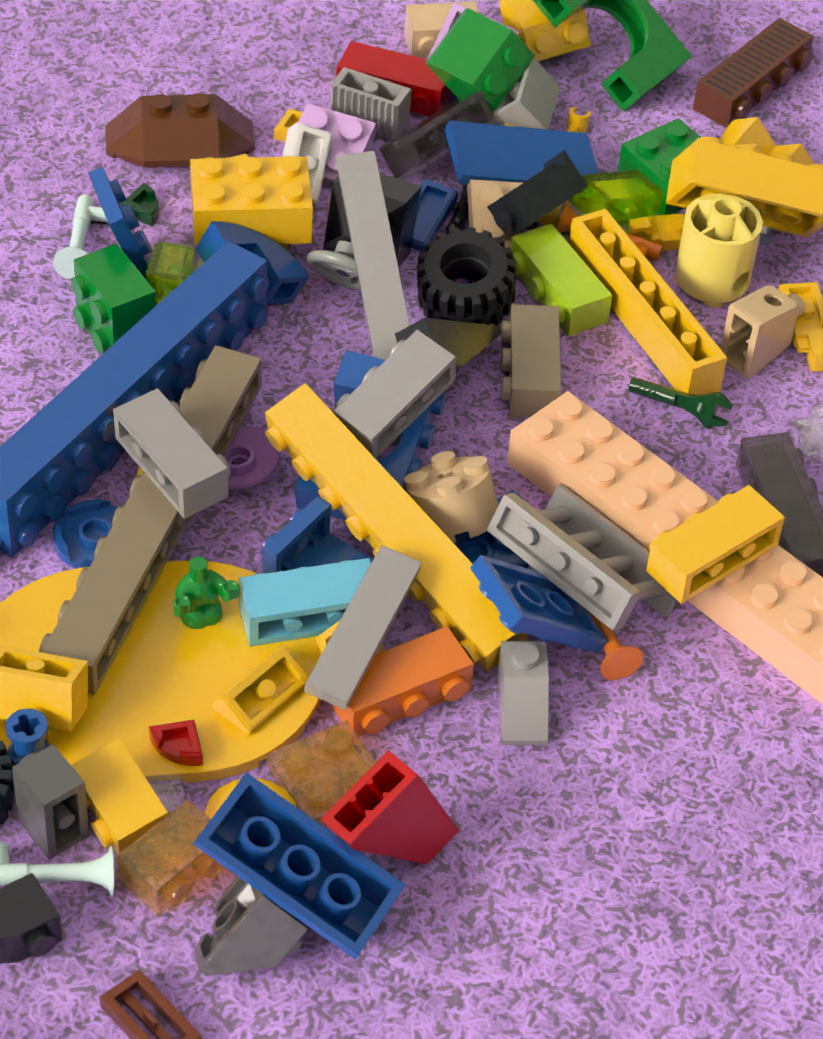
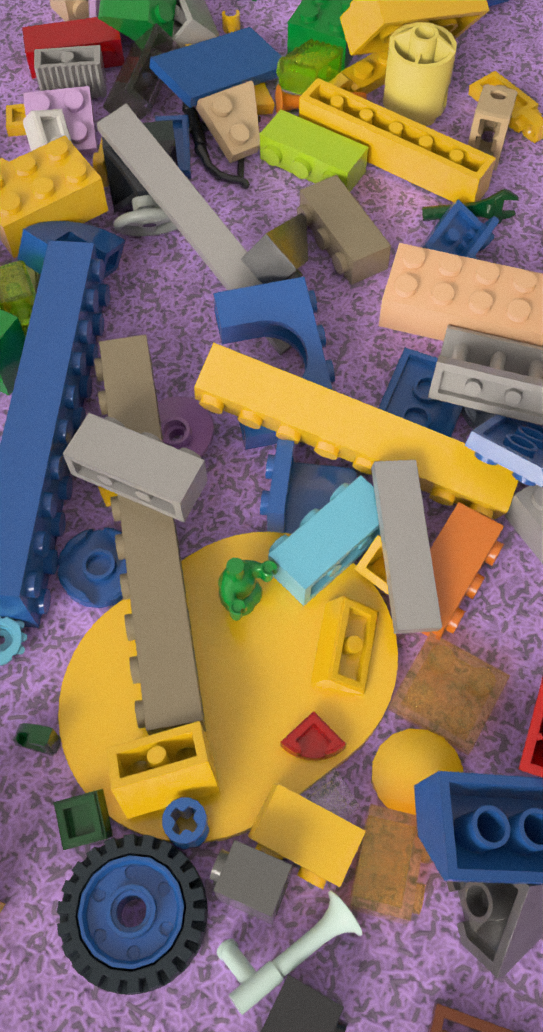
camera: 25 degrees left, 15 degrees up
(396, 392) = (284, 310): light grey brick -> none
(455, 493) = (380, 374): tan brick -> none
(463, 256) = (250, 162): black tyre -> none
(537, 195) = (260, 89): black window -> none
(647, 415) = (461, 232): none -> blue bracket

